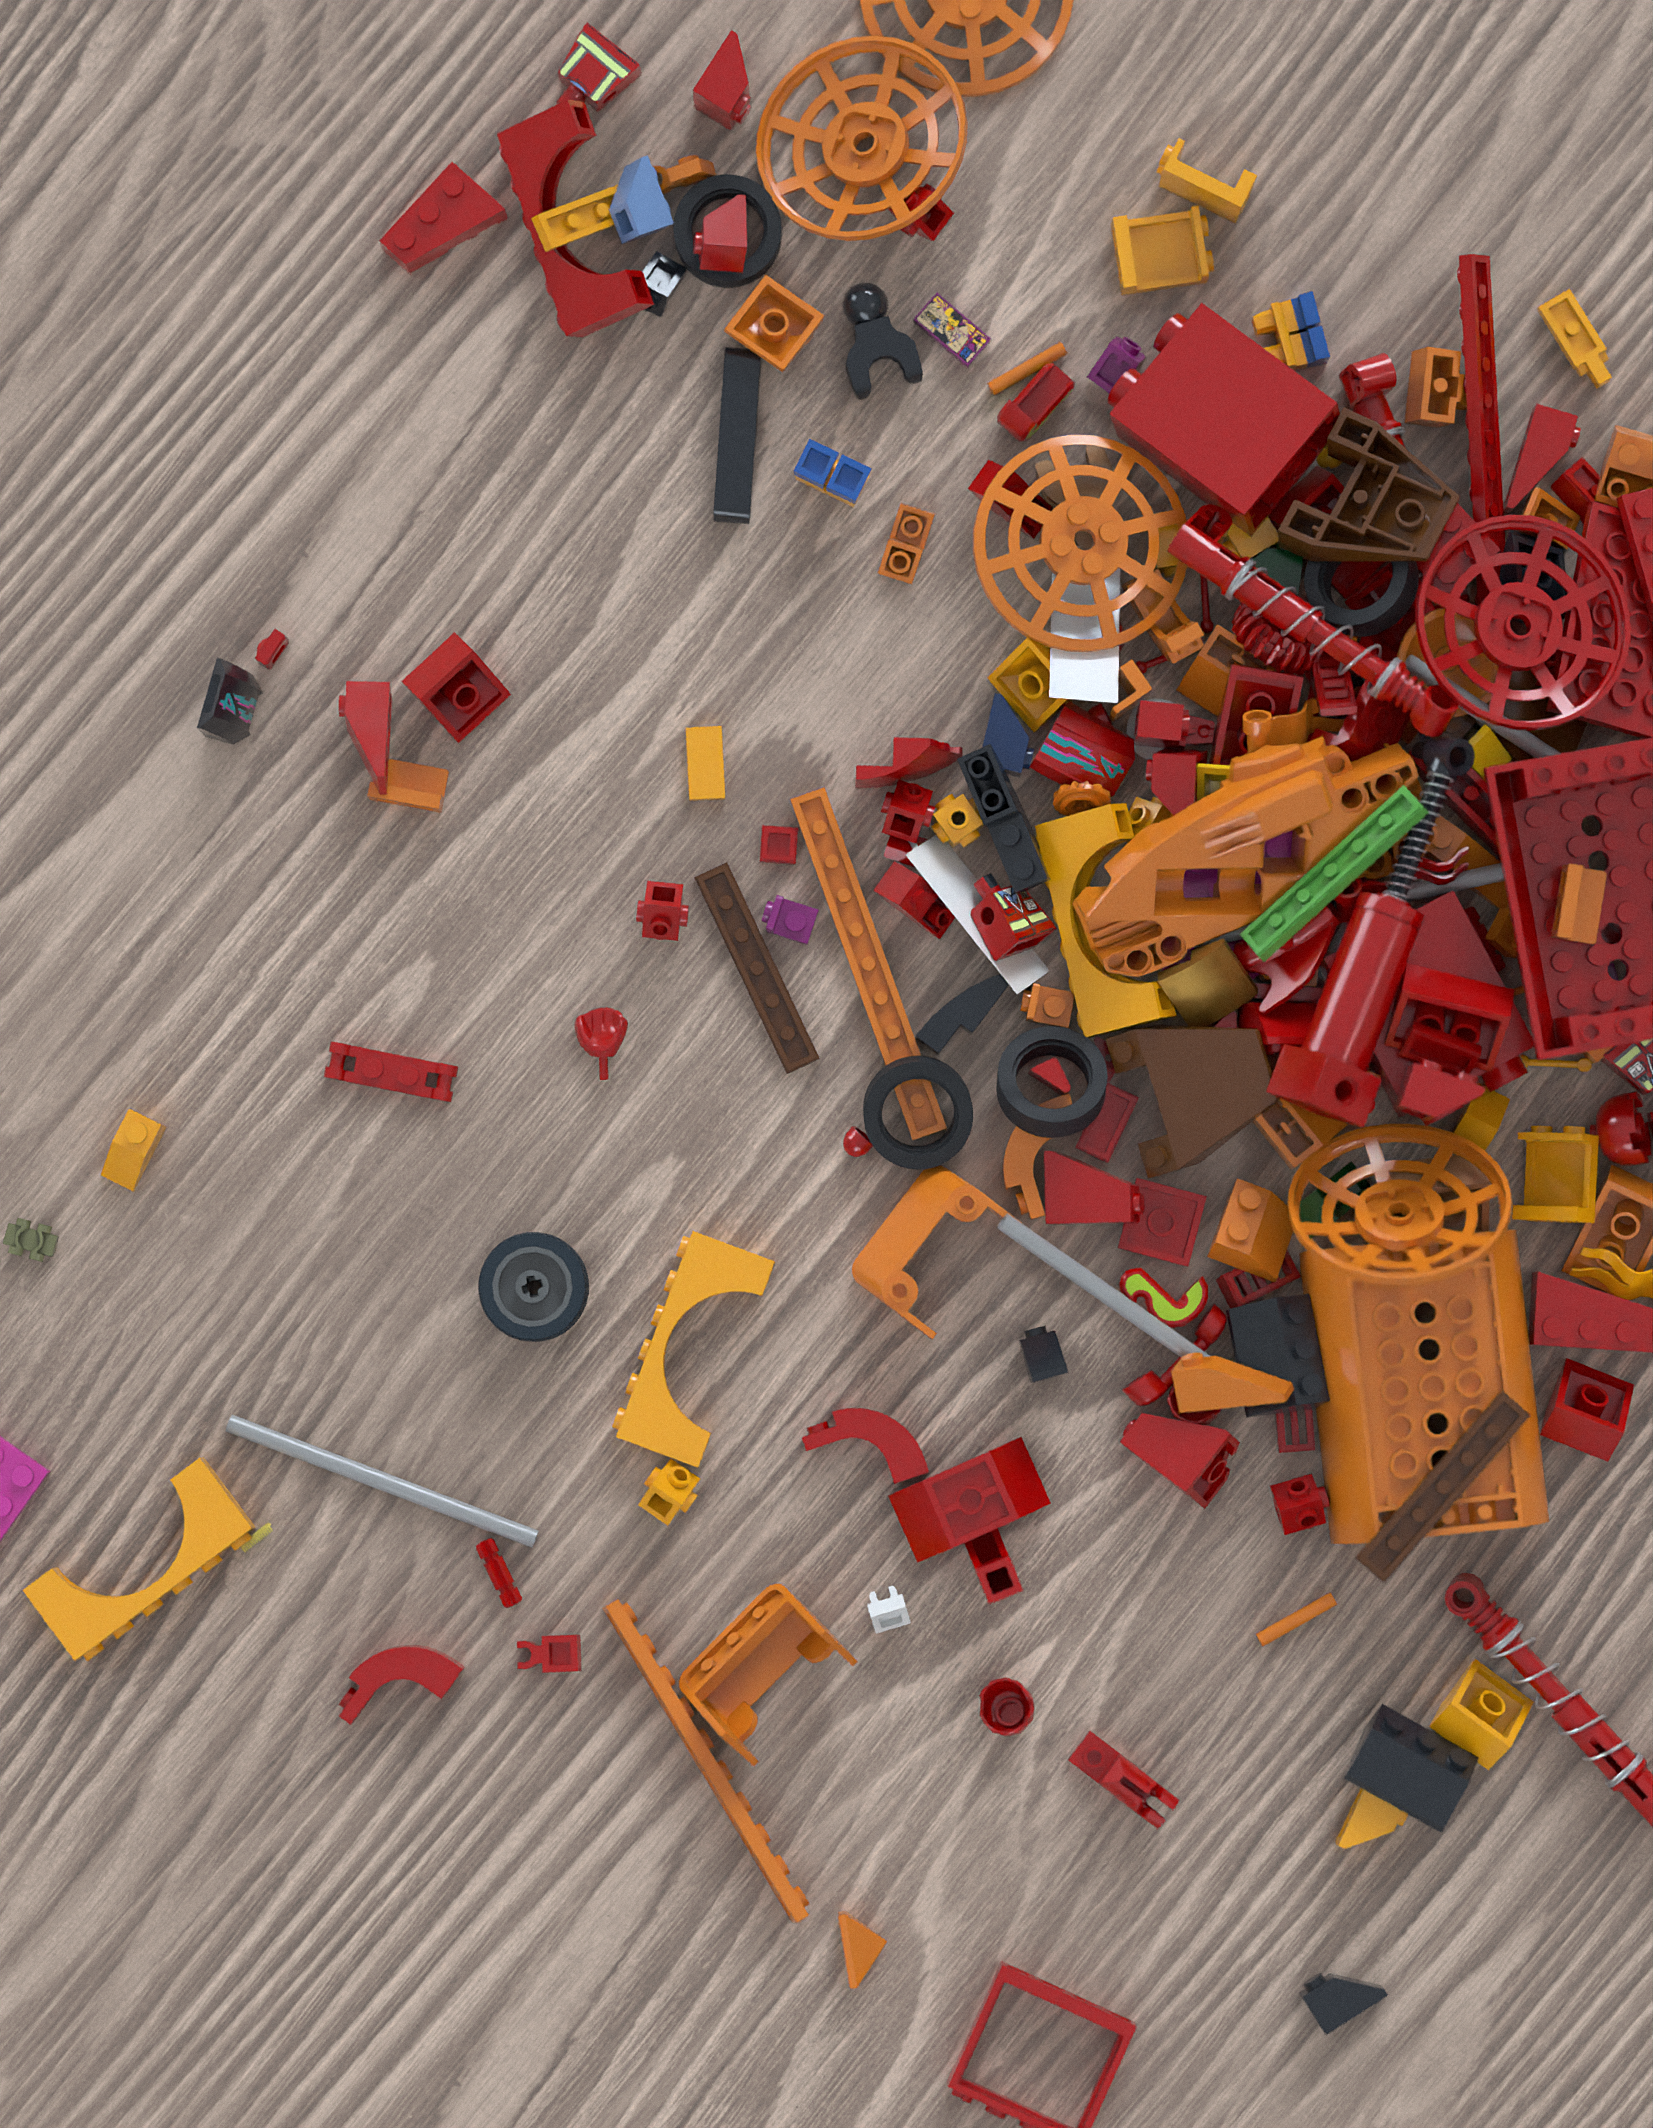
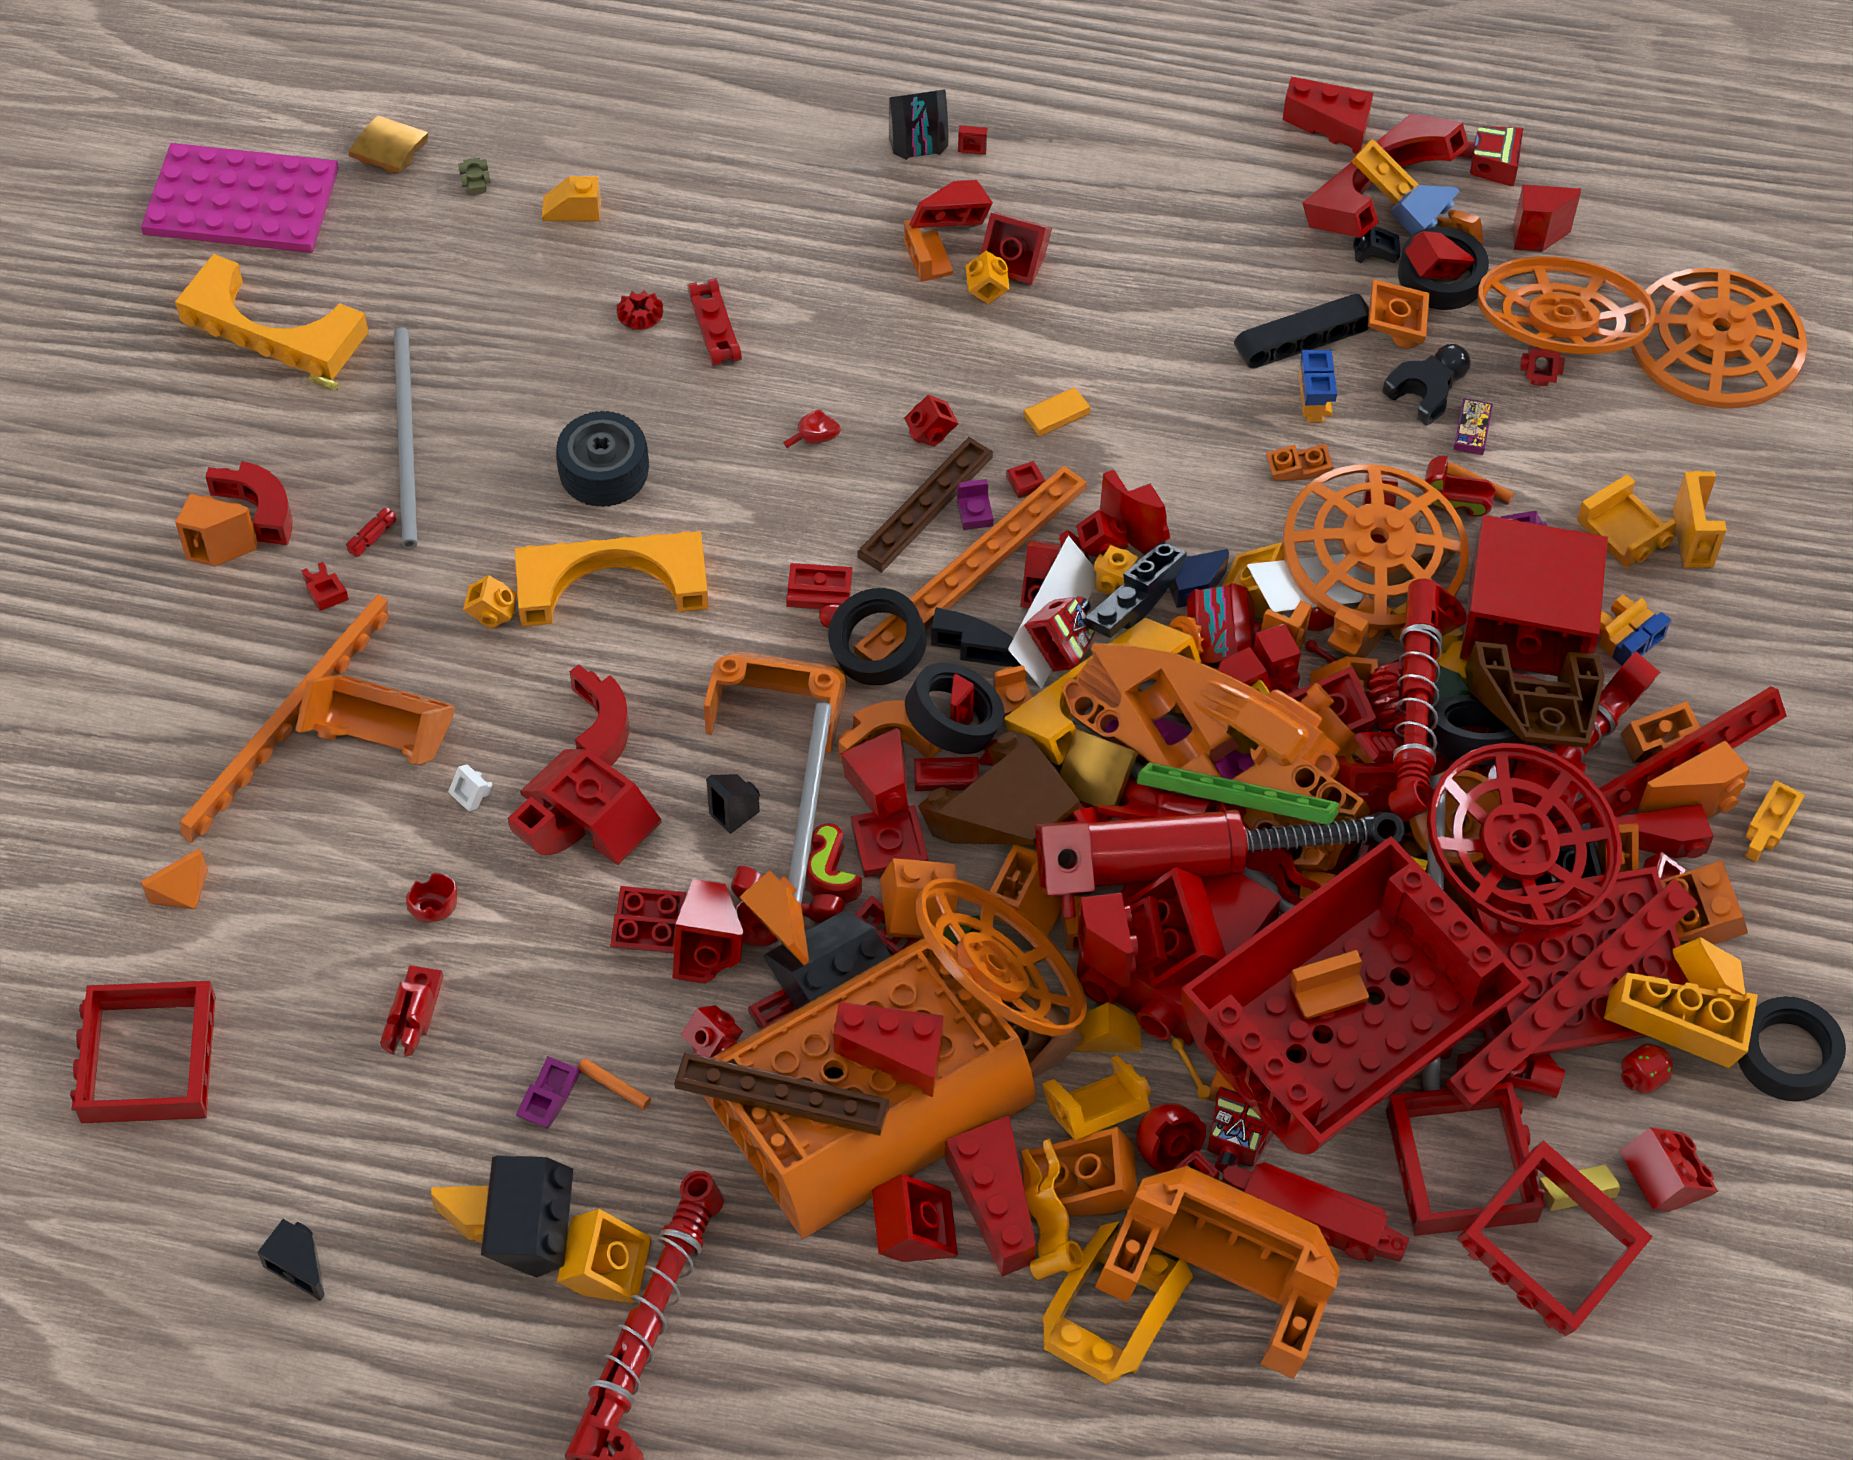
camera: 60 degrees right, 30 degrees down
(345, 1152) = (641, 318): none -> red gear
(432, 1746) = (214, 530): none -> orange slope
(489, 742) = (987, 277): none -> light orange brick
(814, 1136) = (818, 585): none -> red plate
(1131, 1502) = (646, 919): none -> red slope
(1276, 1687) = (548, 1093): none -> magenta slope
(1450, 1358) = (891, 1041): none -> red wedge
(1520, 378) = (1707, 779): none -> orange slope

